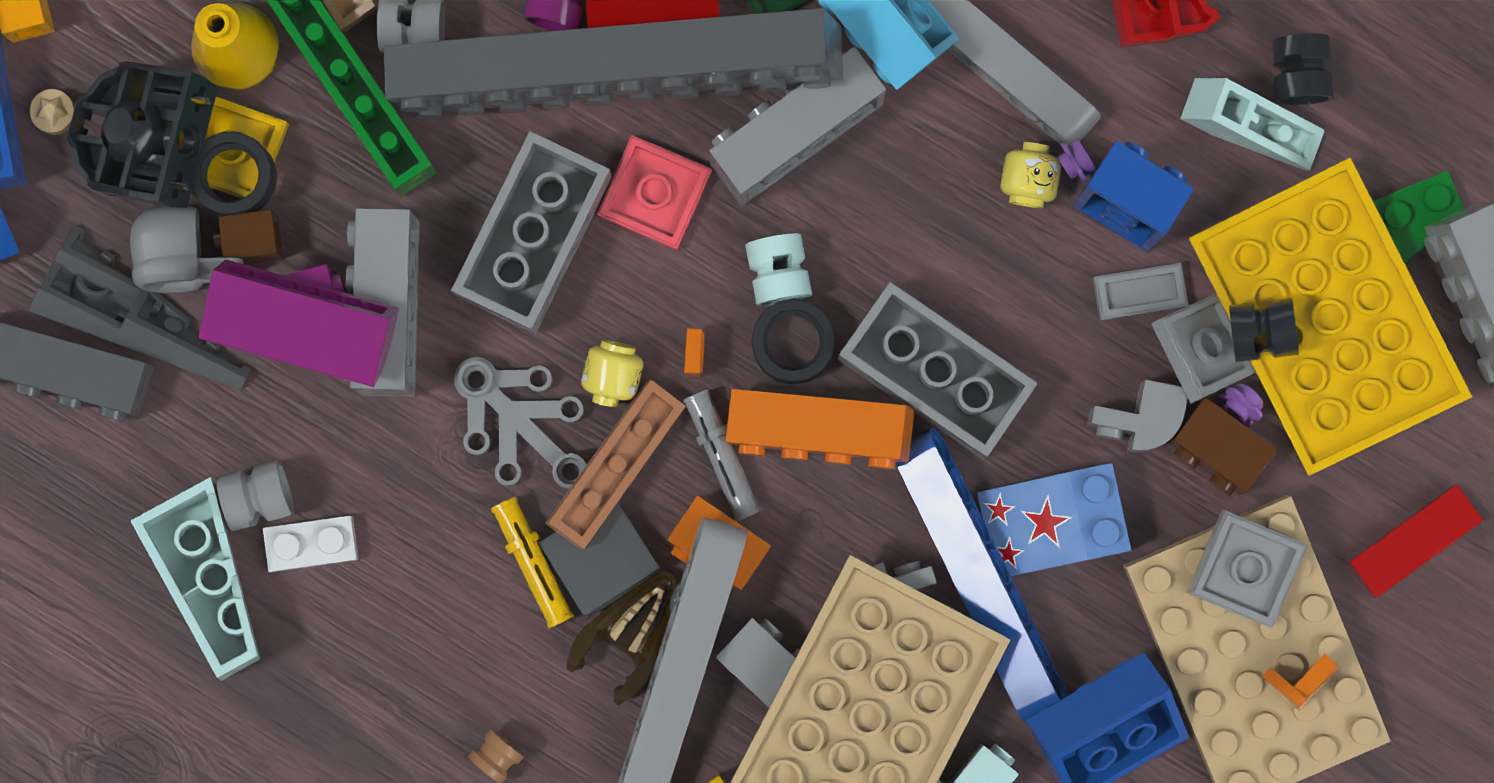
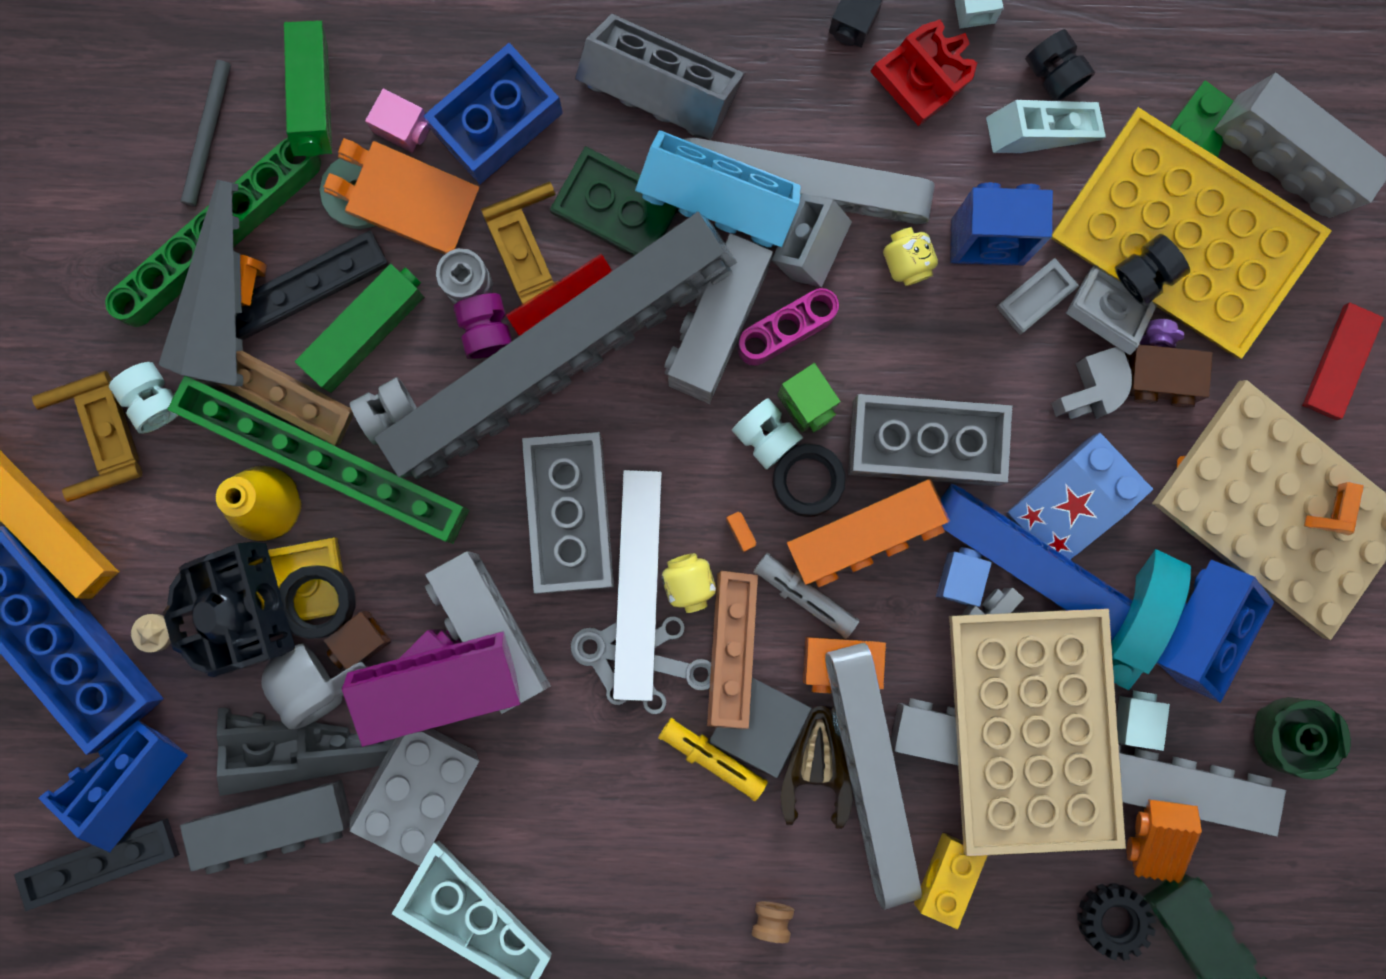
camera: 35 degrees left, 0 degrees up
(219, 417) = (413, 793): none -> light grey brick
(255, 495) = (481, 828): light grey wheel -> none
(310, 544) = (538, 844): white plate -> none
(559, 345) = (637, 586): none -> white tile
(654, 192) = (639, 430): coral tile -> none
(839, 259) = (809, 399): none -> bright green brick
(883, 163) = (800, 314): none -> dark pink beam
(891, 529) = (964, 577): none -> medium blue brick
(939, 101) = (812, 240): none -> light grey brick
(1046, 675) = (1152, 618): none -> teal arch
(1076, 161) = (938, 226): medium lavender plate -> none
(1247, 568) = (1249, 452): light grey tile -> none

